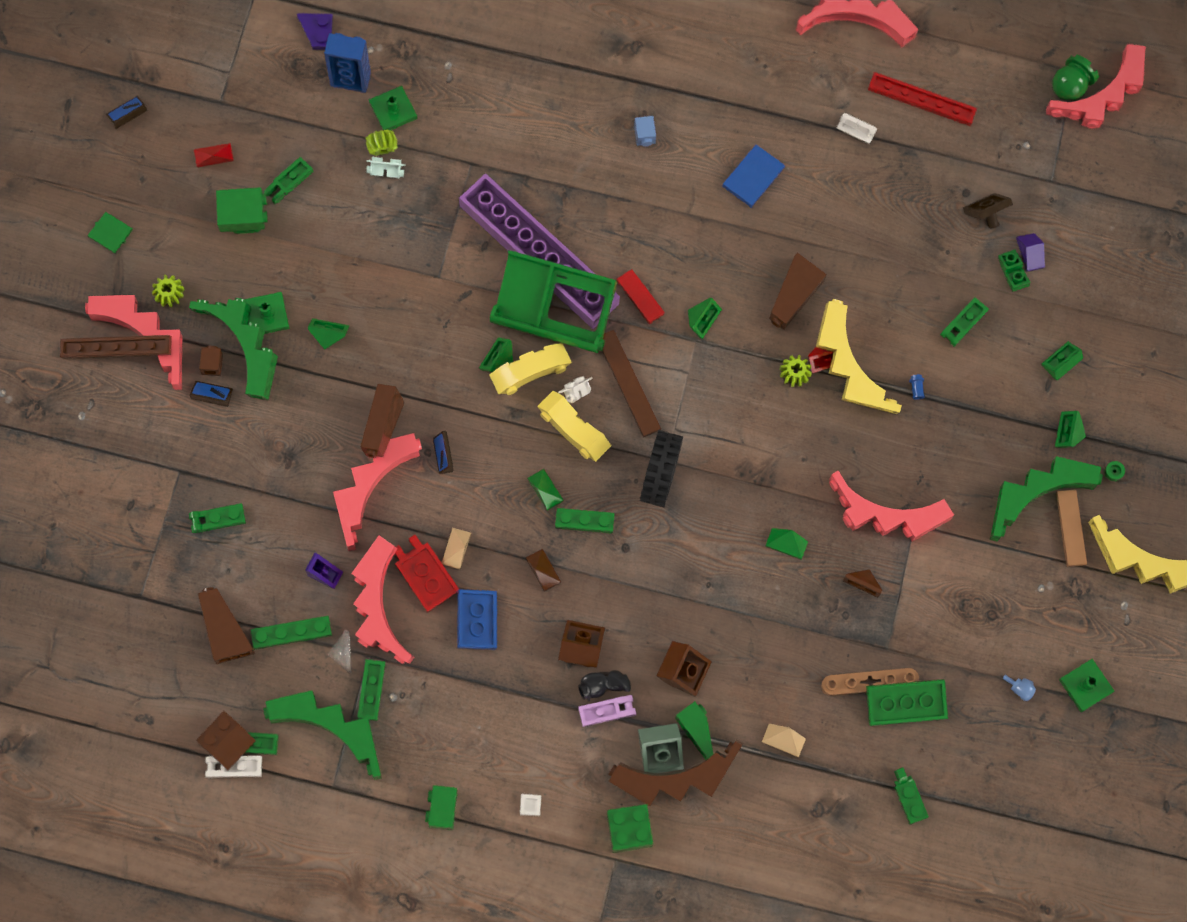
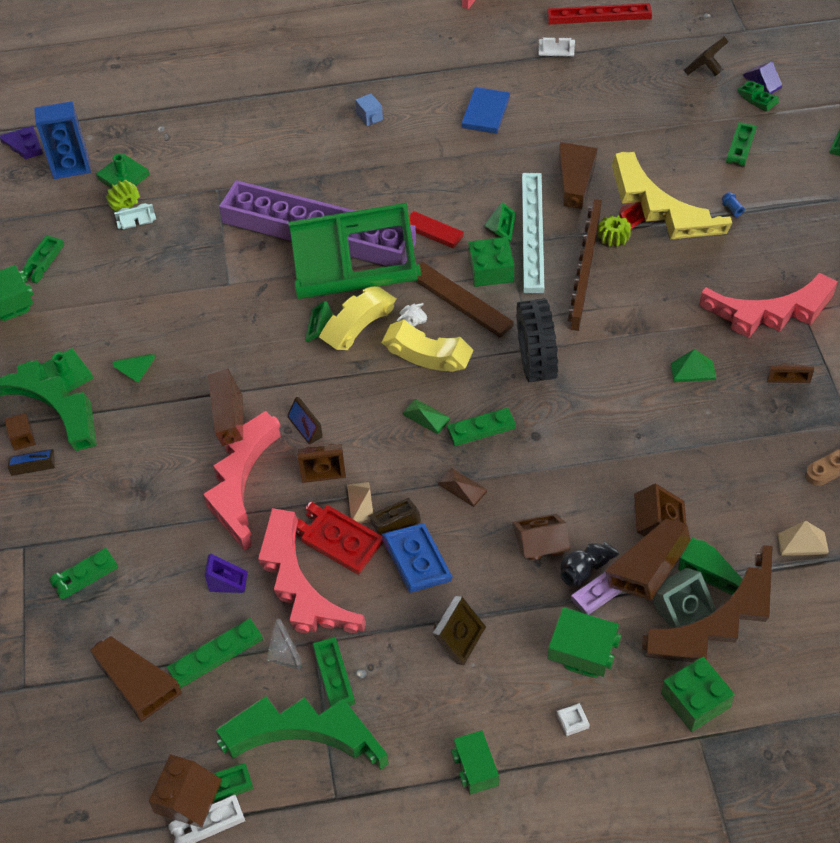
camera: 15 degrees left, 20 degrees down
(439, 499) = (321, 463): none -> reddish brown slope
(476, 576) = (395, 517): none -> dark brown slope
(477, 699) = (459, 630): none -> dark brown tile
(566, 751) = (584, 643): none -> green brick
(650, 708) = (650, 560): none -> reddish brown slope
(671, 358) = (491, 261): none -> green brick
(724, 339) = (532, 233): none -> light aqua plate
(756, 389) = (583, 269): none -> reddish brown plate

